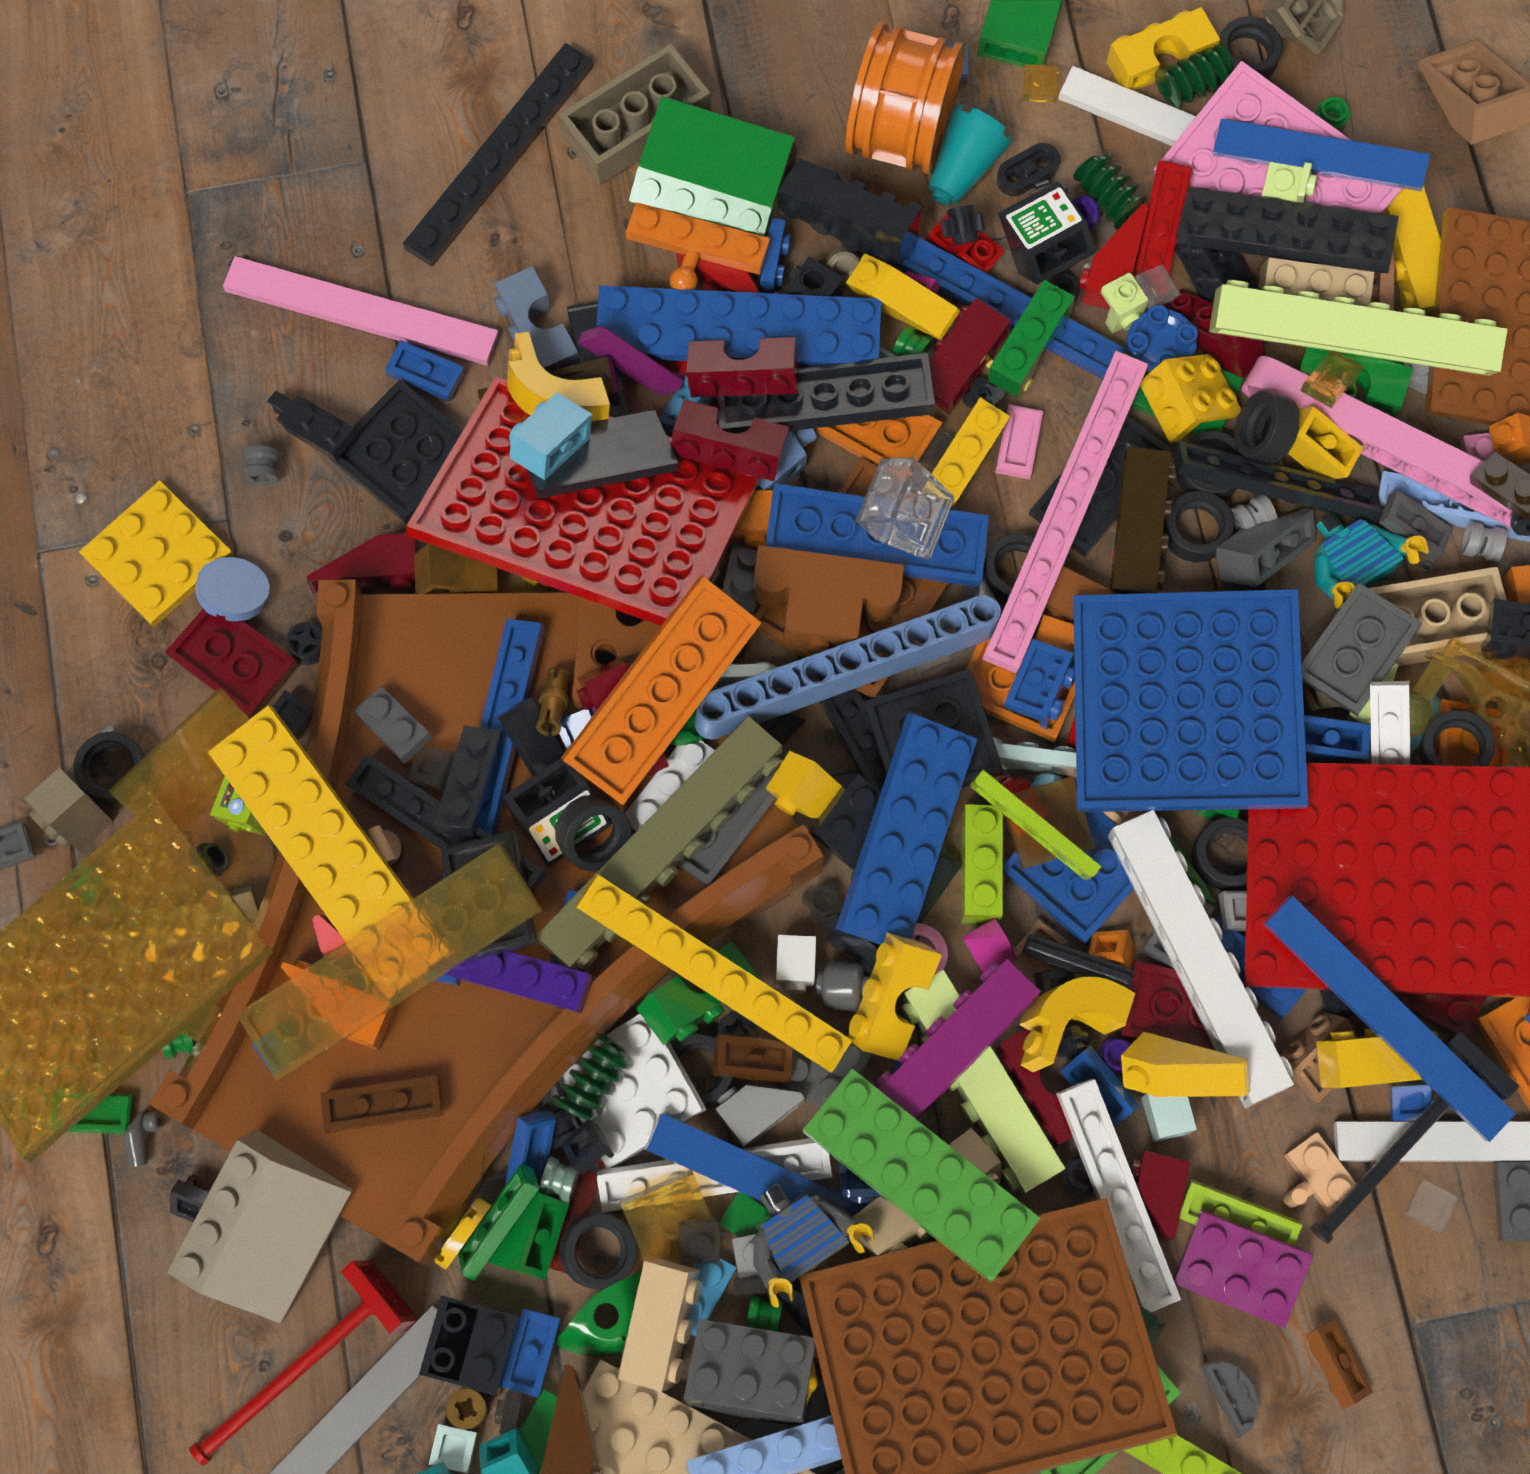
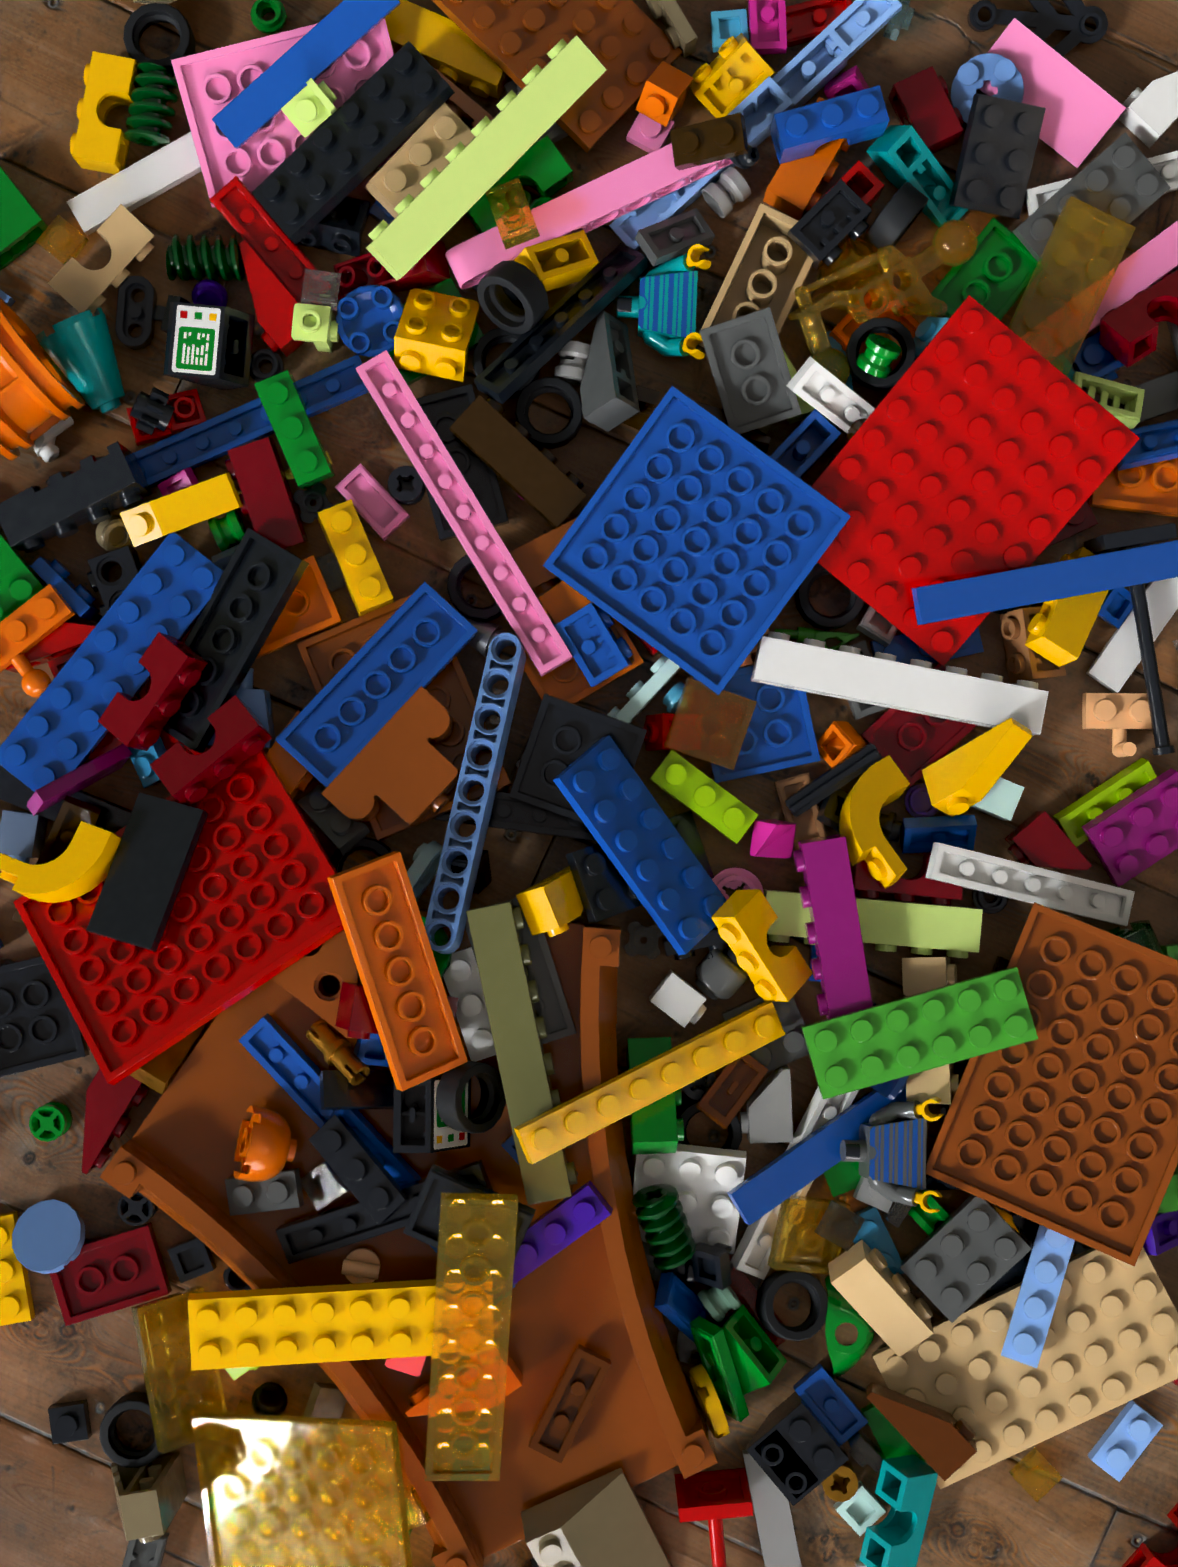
camera: 50 degrees left, 15 degrees up
(81, 712) = (69, 1421): none -> black plate
(329, 520) = (44, 1126): none -> green wheel
(433, 695) = (263, 1145): none -> orange cylinder
(550, 435) = (107, 905): medium azure brick -> none
(878, 169) = (45, 446): none -> white arm
(905, 506) = (373, 648): clear slope -> none
(1035, 826) = (710, 740): lime tile -> none
(1050, 465) = (411, 491): none -> black wheel
(1077, 126) = (126, 240): none -> tan arch
(1454, 741) = (878, 356): none -> green wheel

